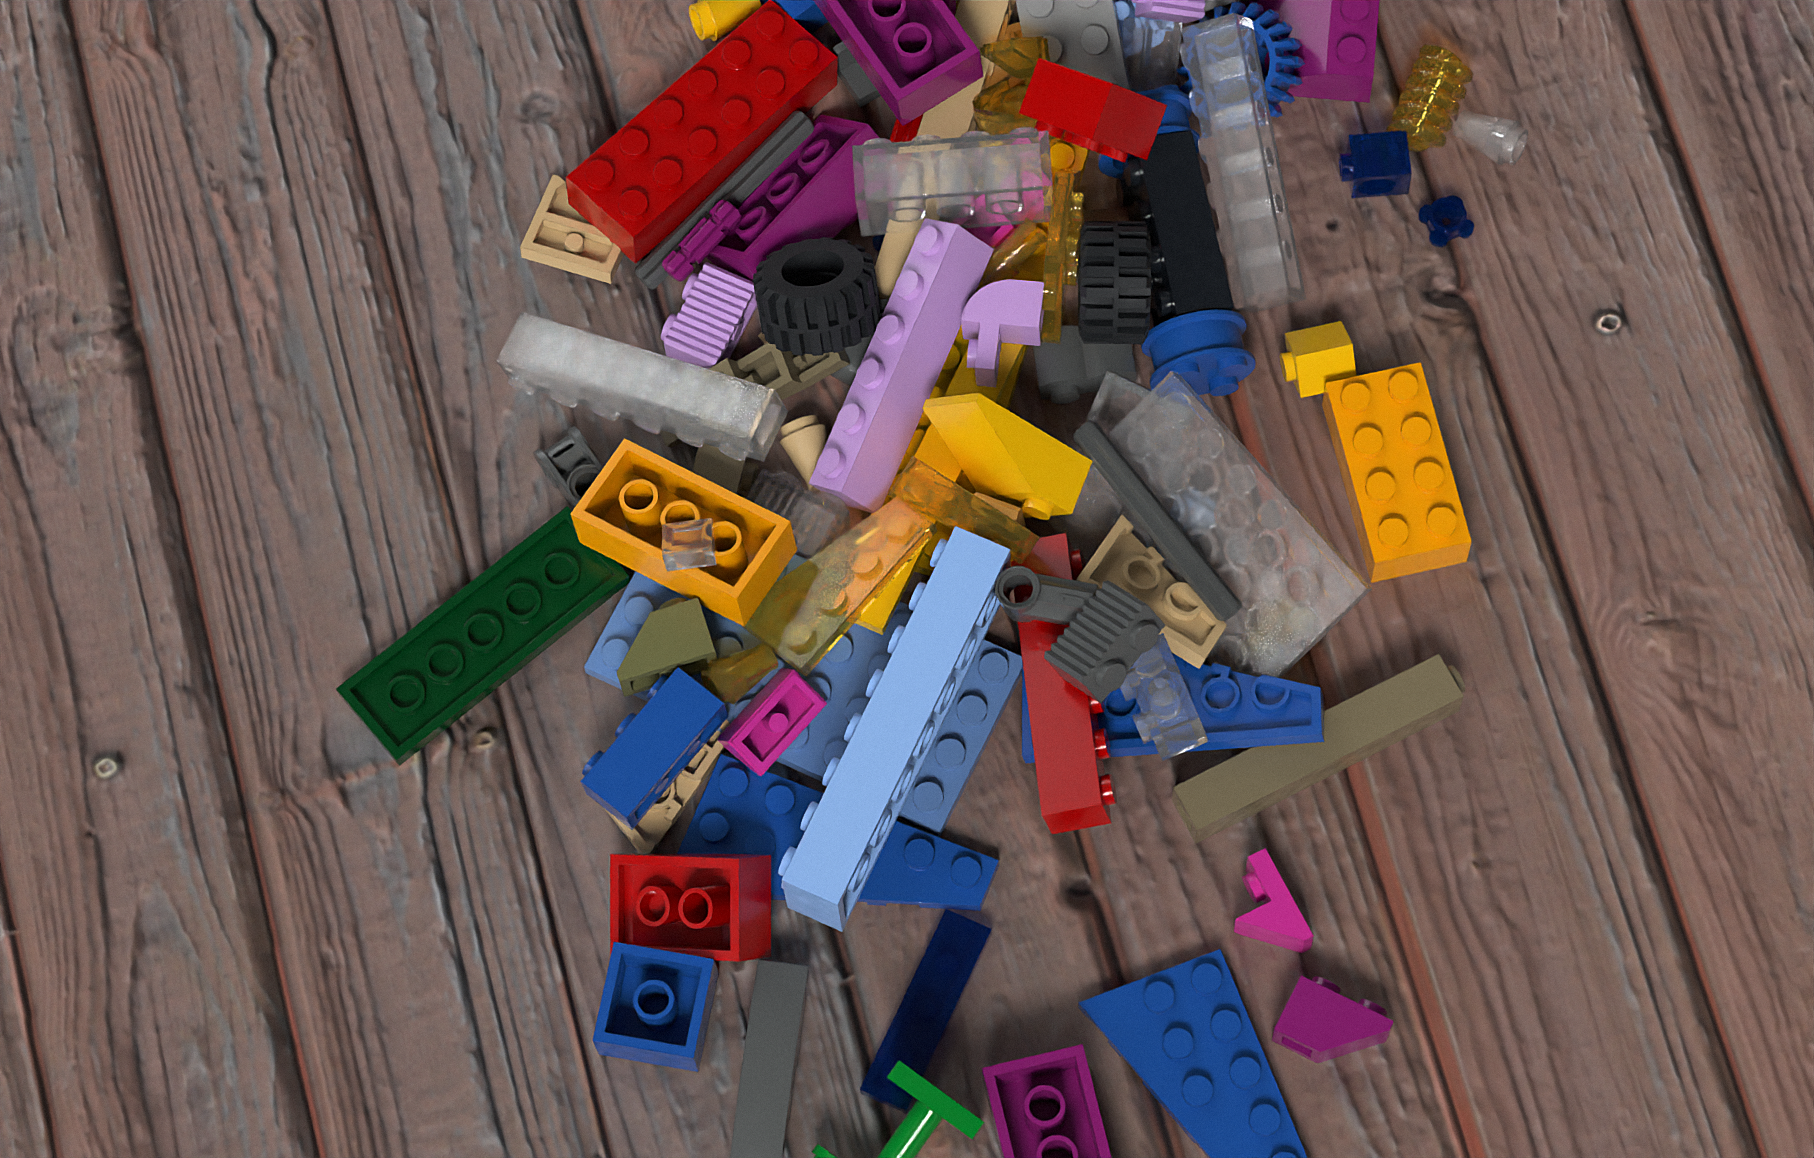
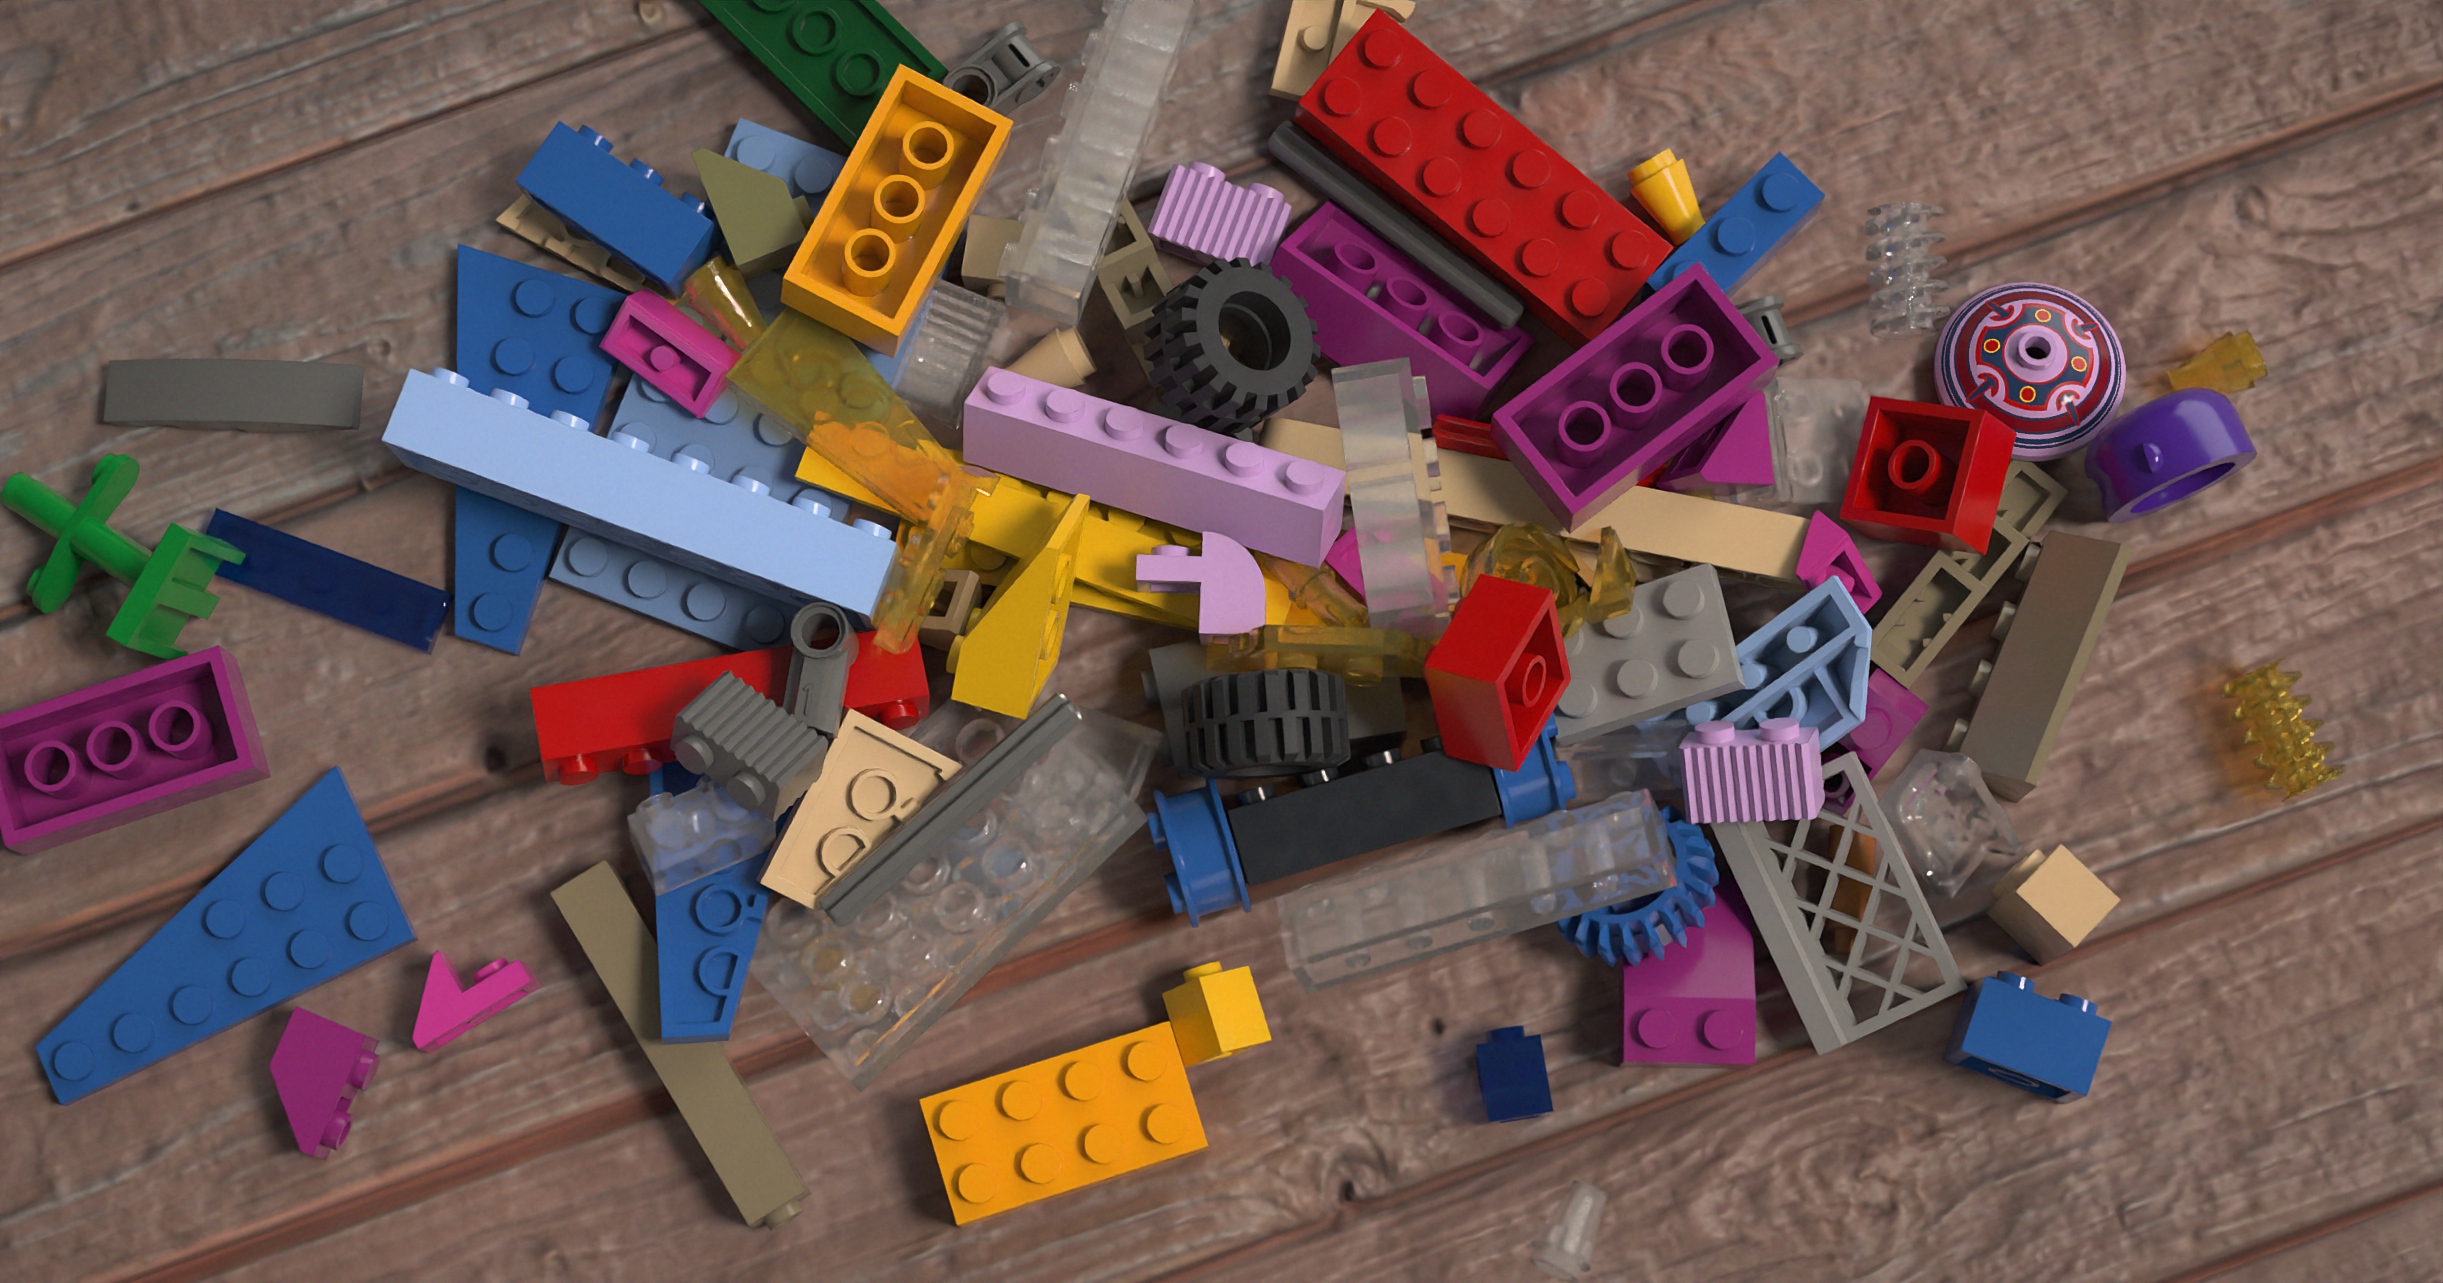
camera: 85 degrees right, 10 degrees up
(655, 1006) = (295, 248): blue brick -> none
(688, 544) = (854, 209): clear slope -> none
(693, 904) = (425, 281): red slope -> none
(701, 240) = (1326, 198): magenta axle -> none
(1431, 98) = (1612, 1145): clear yellow piece -> none
(1446, 207) = (1437, 1195): clear blue plate -> none

